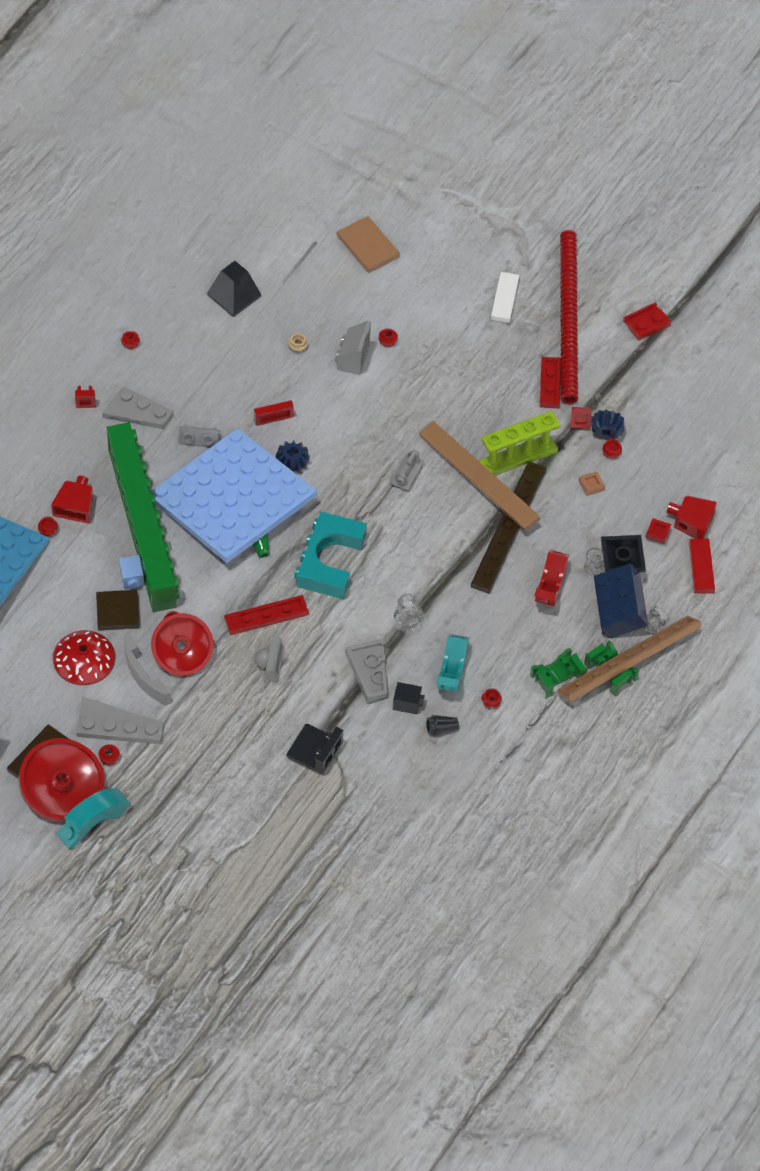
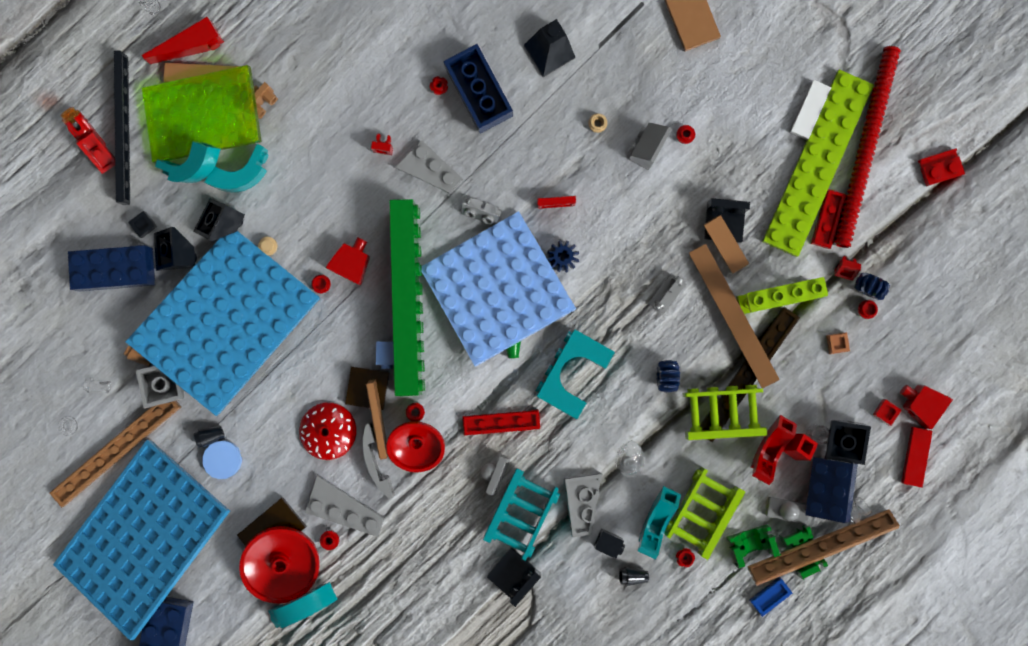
camera: 20 degrees right, 30 degrees up
(136, 628) = (377, 418): none -> medium nougat tile
(171, 331) = (478, 88): none -> dark blue brick
(292, 674) = (511, 498): none -> teal fence
(426, 536) = (668, 376): none -> dark blue gear
(447, 396) = (732, 213): none -> black bracket
(453, 417) = (726, 244): none -> medium nougat tile
(492, 574) = (735, 429): none -> lime fence
(512, 664) = (715, 528): none -> lime fence
(525, 340) = (817, 164): none -> lime plate
(578, 572) = (801, 448): none -> red brick
(583, 636) = (786, 510): none -> light grey tile
(591, 718) = (770, 596): none -> blue tile

